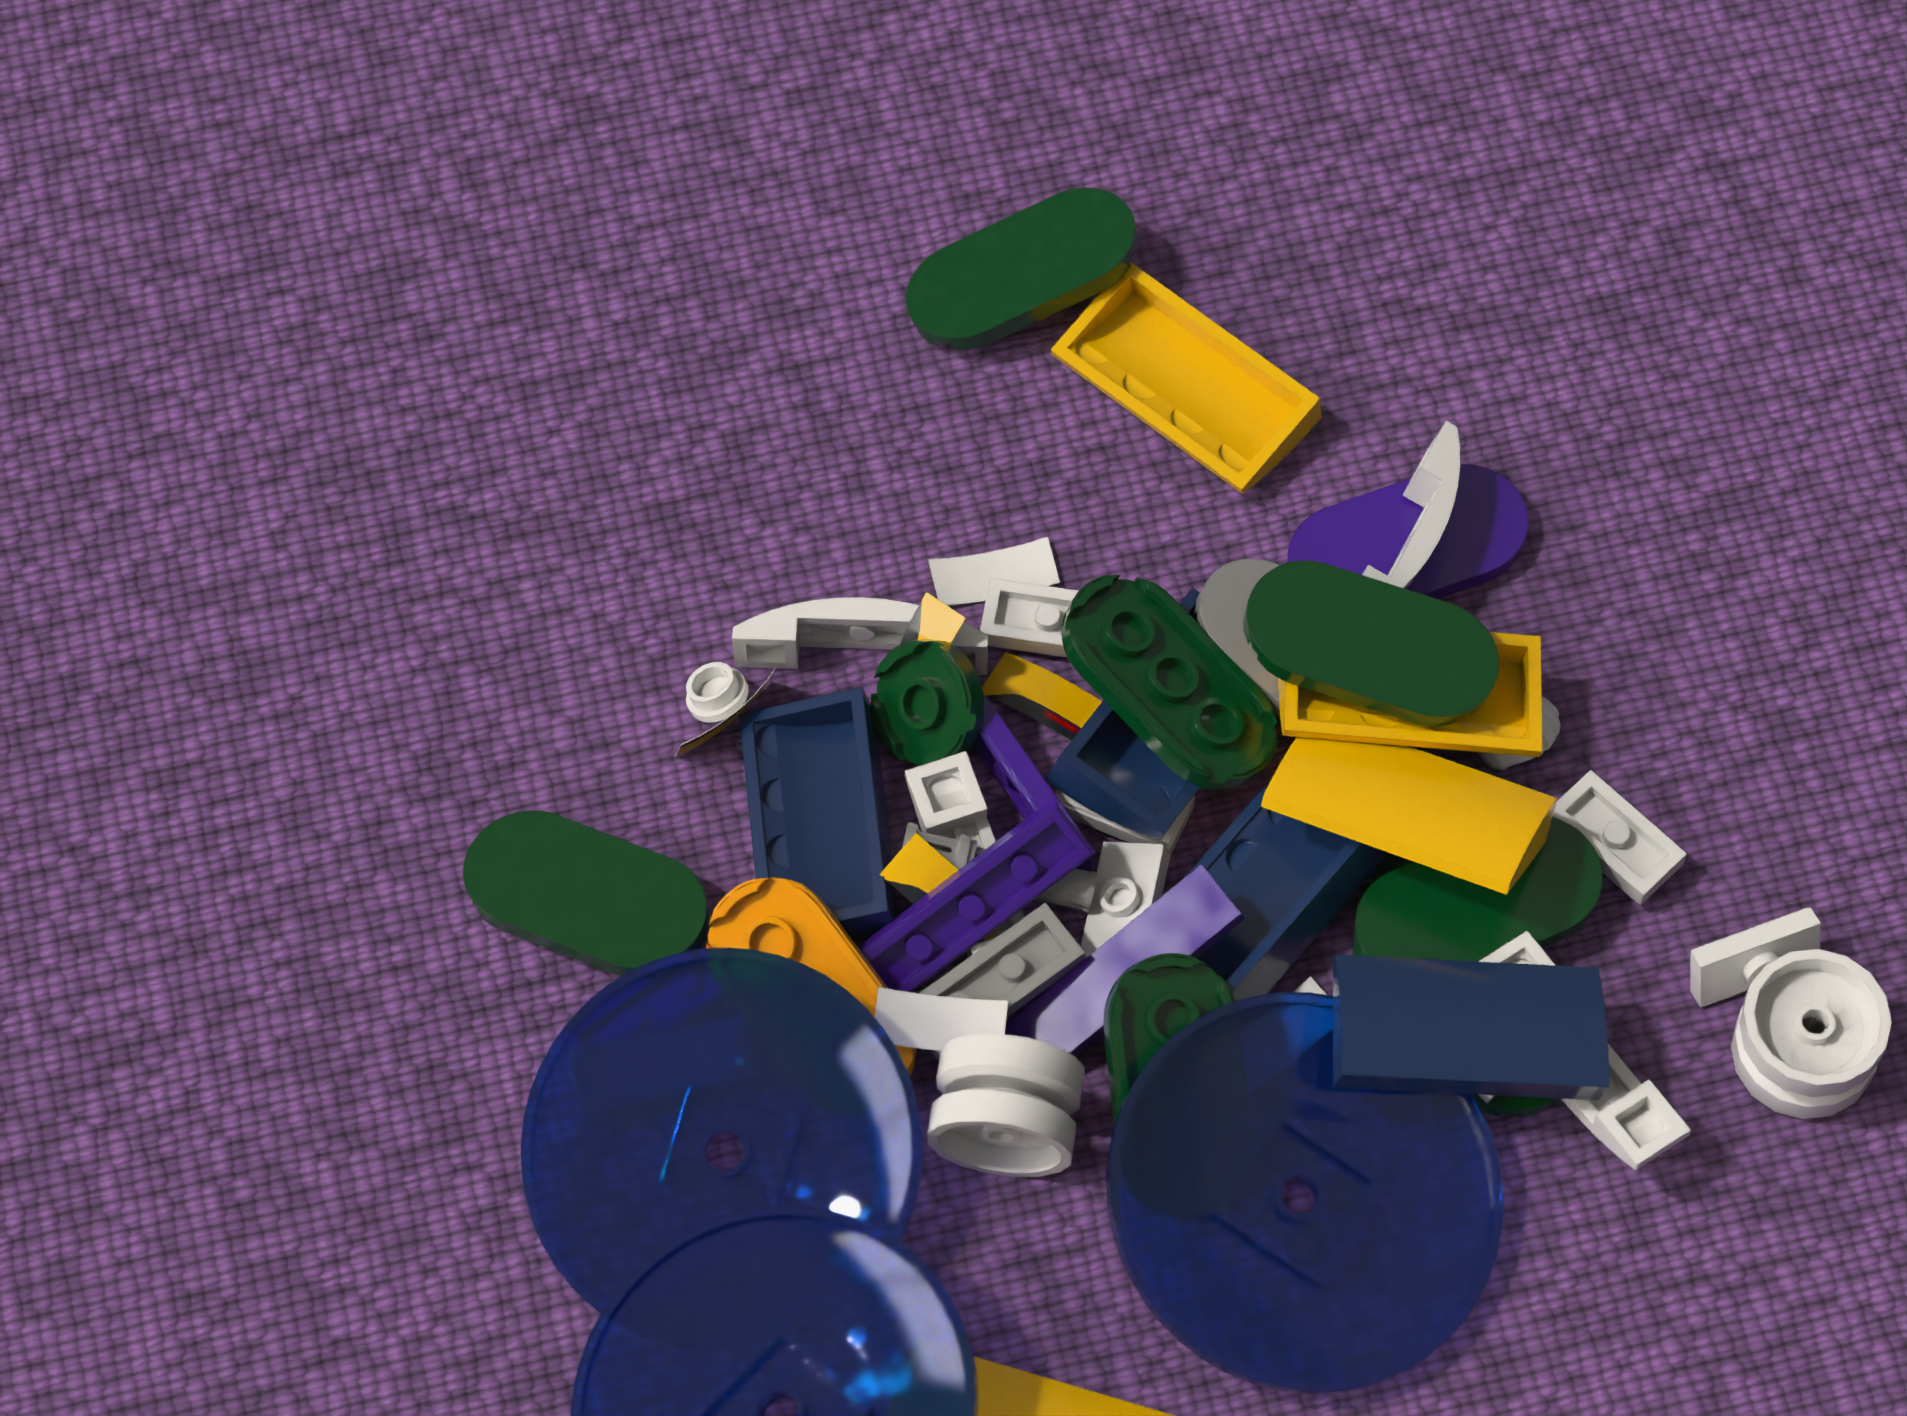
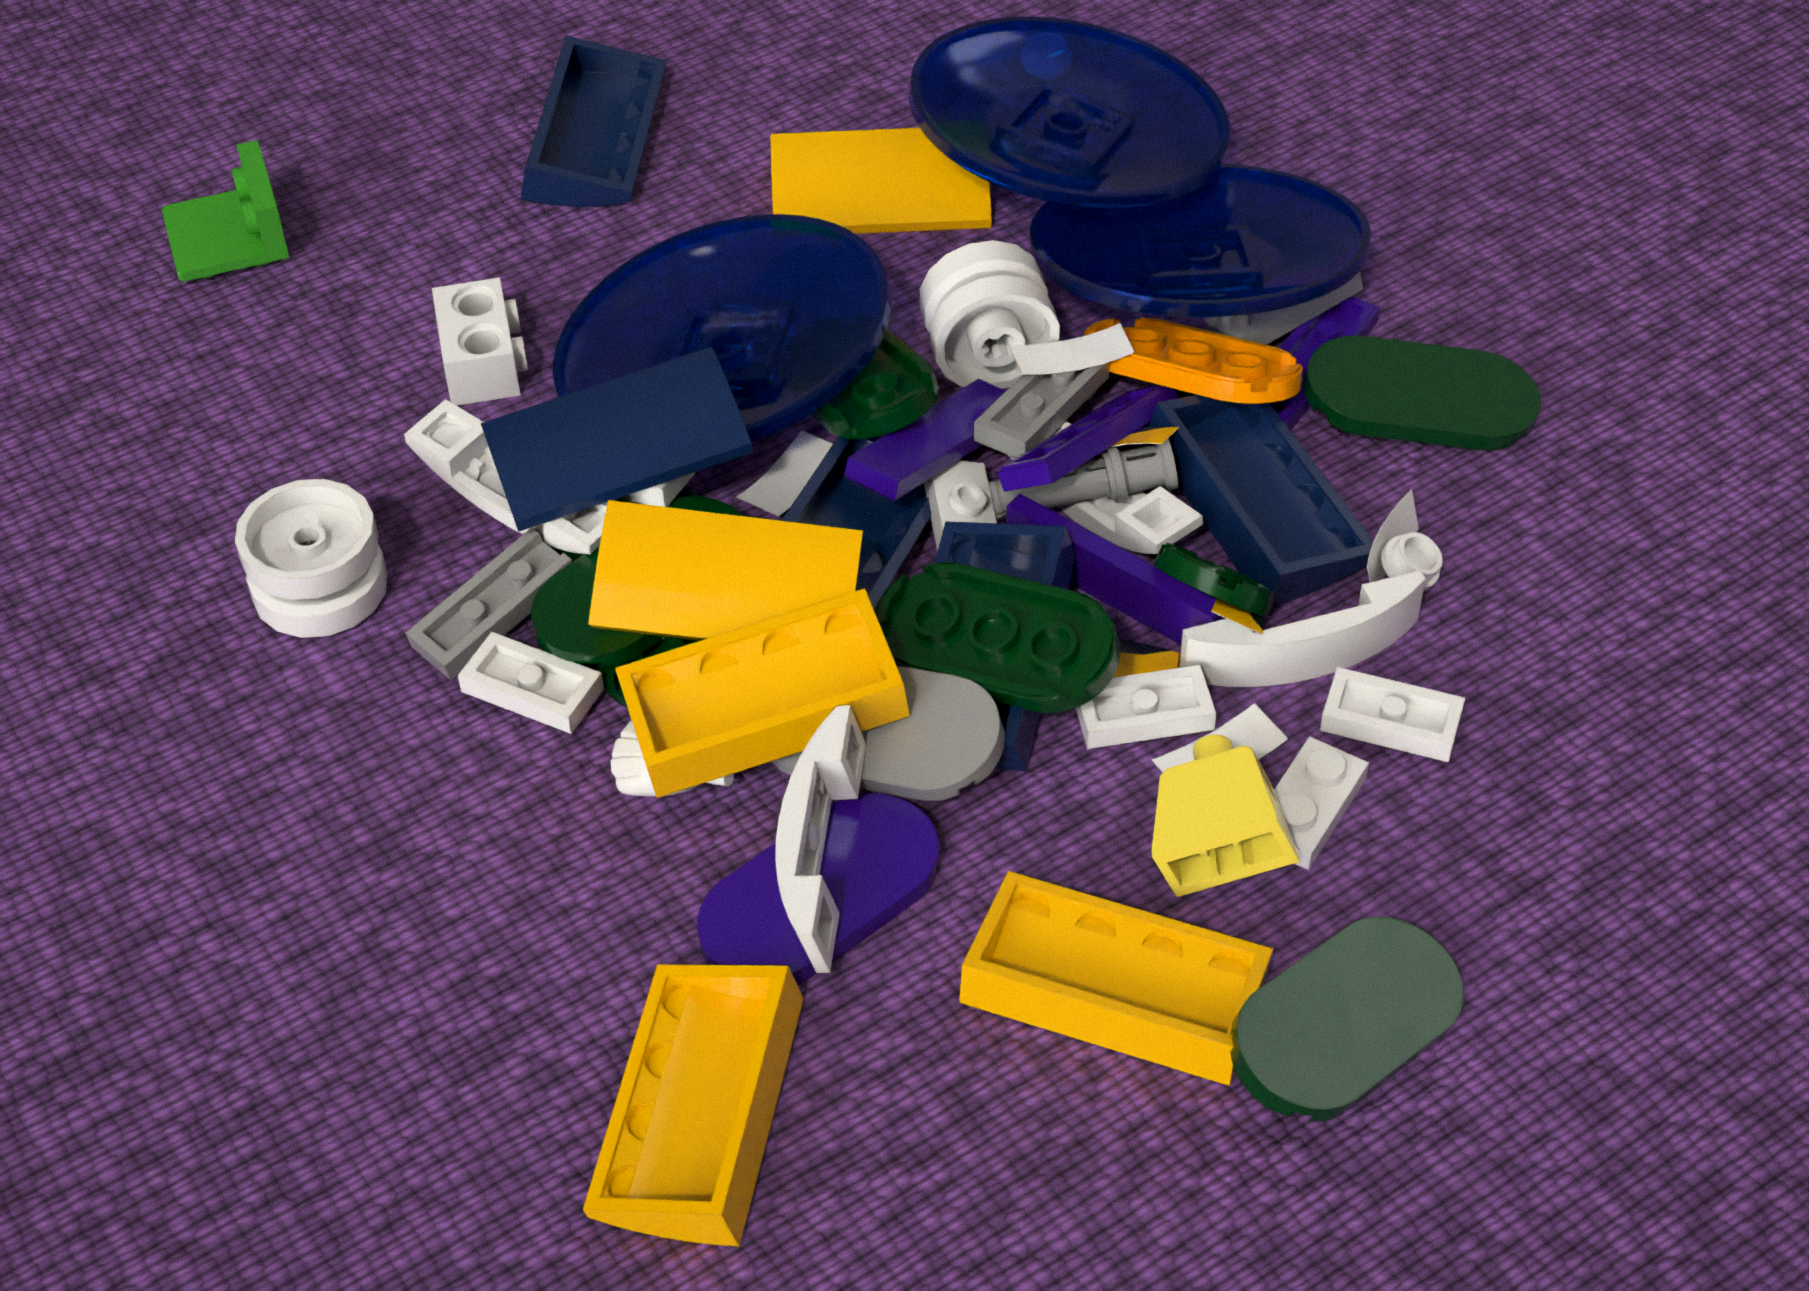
camera: 160 degrees right, 15 degrees down
(827, 538) = (1392, 714): none -> white plate
(942, 491) = (1317, 795): none -> white plate
(1039, 463) = (1218, 819): none -> light yellow torso
(1370, 643) = (810, 675): dark green tile -> none
(1571, 386) = (696, 1102): none -> yellow slope
(1586, 1320) = (477, 343): none -> white brick
(1640, 940) = (486, 603): none -> light grey hinge
(1735, 961) = (375, 617): white plate -> none

